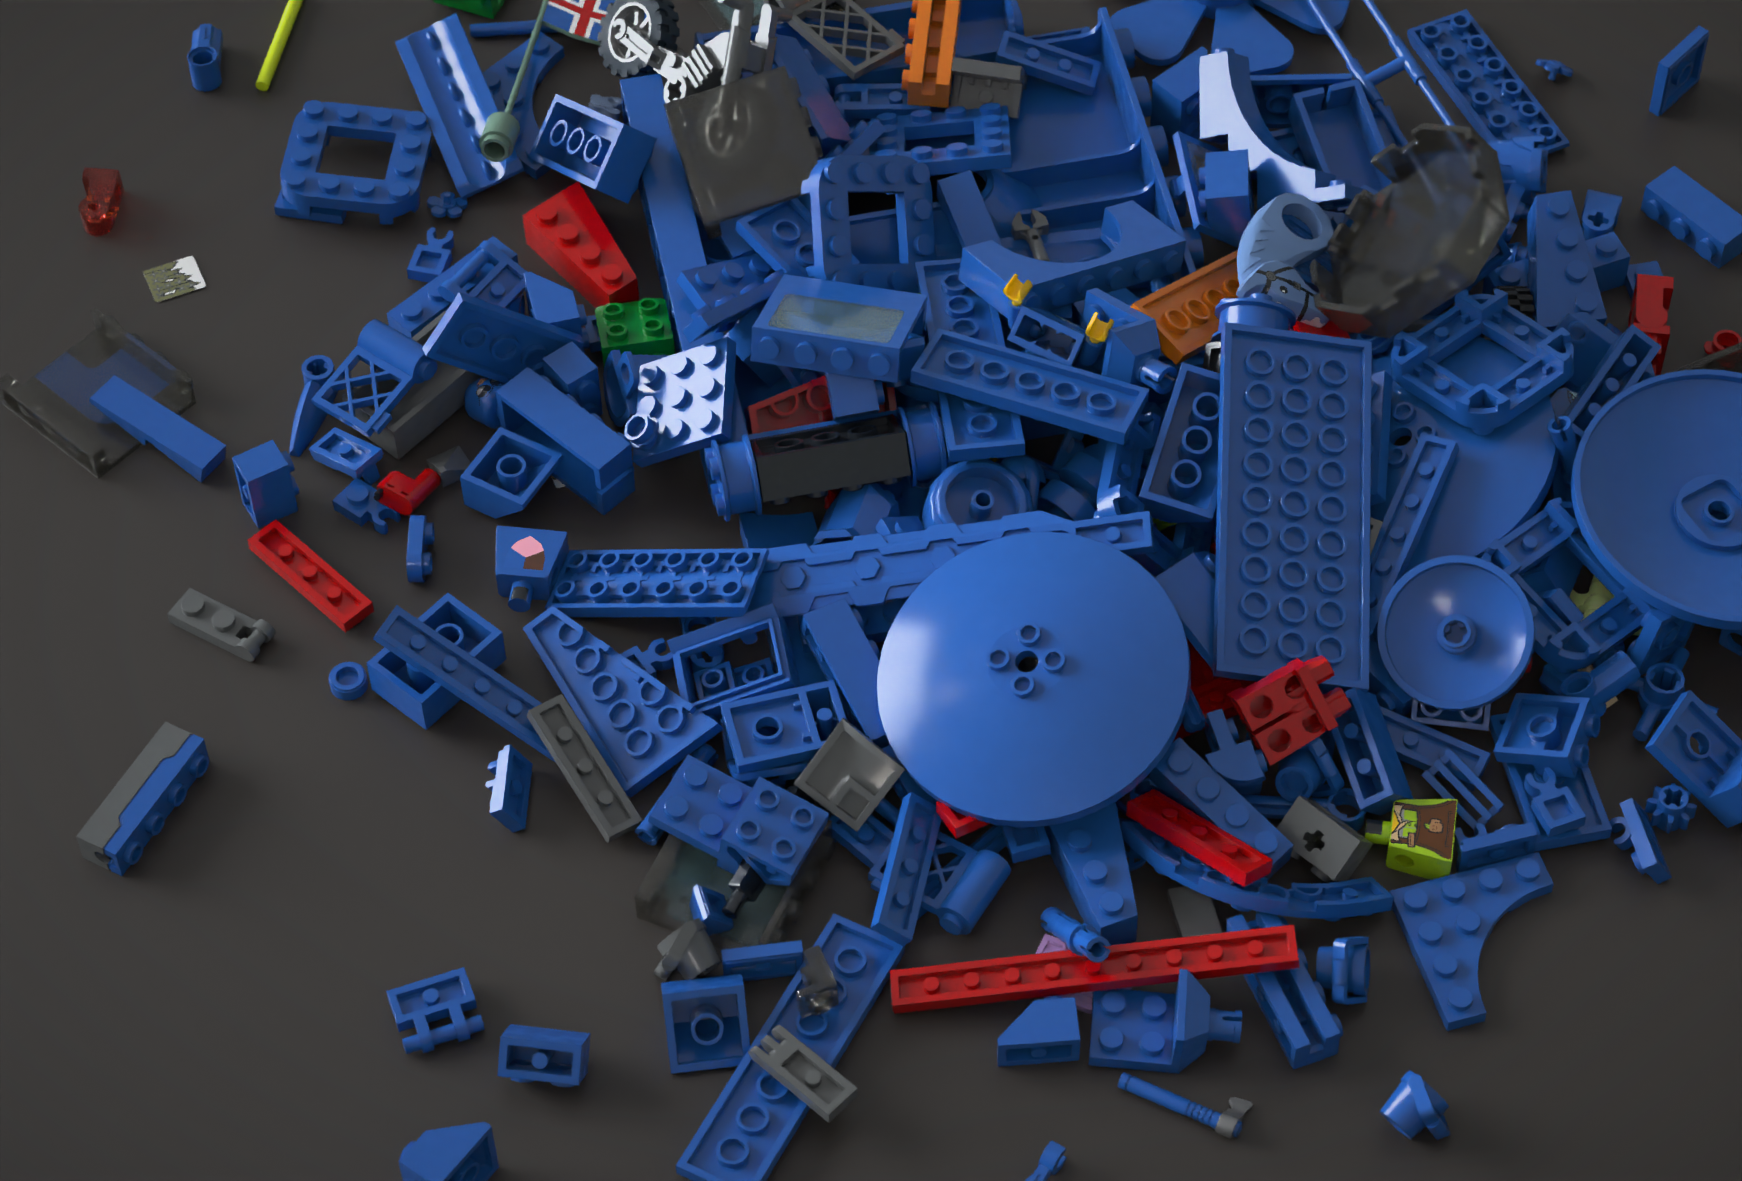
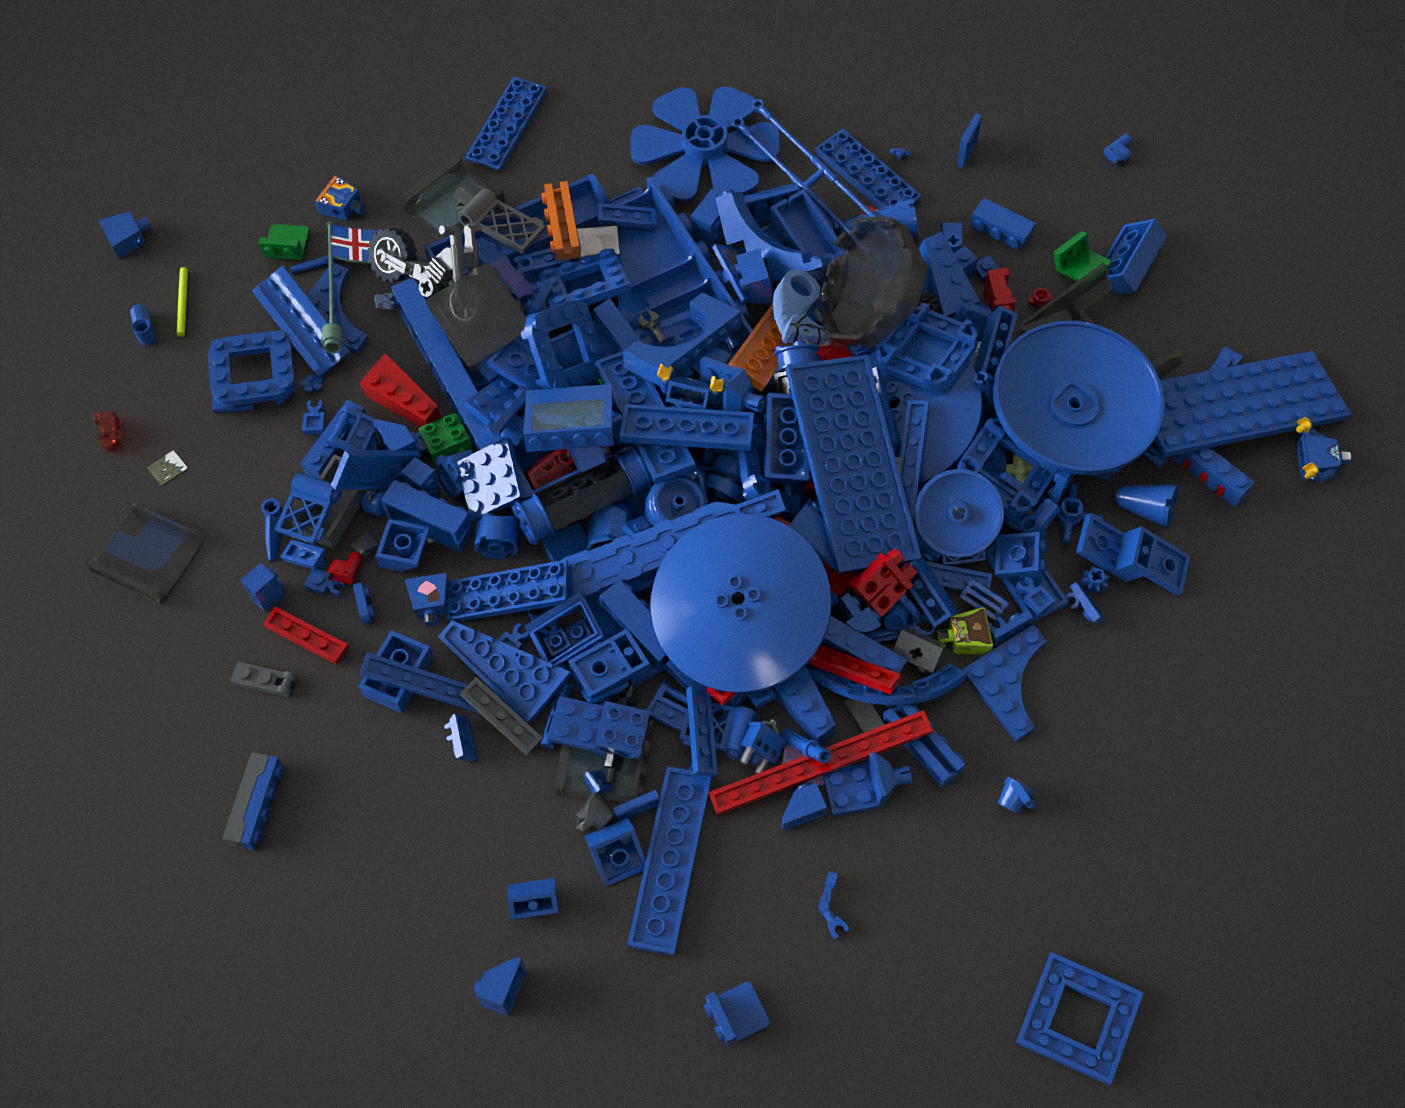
camera: 15 degrees left, 10 degrees up
(154, 423) = (188, 565): blue slope -> none
(348, 681) = (347, 694): blue tile -> none
(433, 1000) = (457, 881): blue plate -> none
(592, 148) = (388, 333): blue brick -> none
(641, 430) = (472, 503): blue plate -> none
(668, 497) = (496, 536): none -> blue brick
(804, 1073) = (682, 870): dark grey hinge -> none
(820, 985) = (673, 810): clear smoke bracket -> none
(849, 775) = (653, 683): dark grey plate -> none
(1004, 916) = (763, 744): none -> blue piece
(1226, 1123) = (917, 831): blue piece -> none
(1345, 969) = (954, 724): blue piece -> none

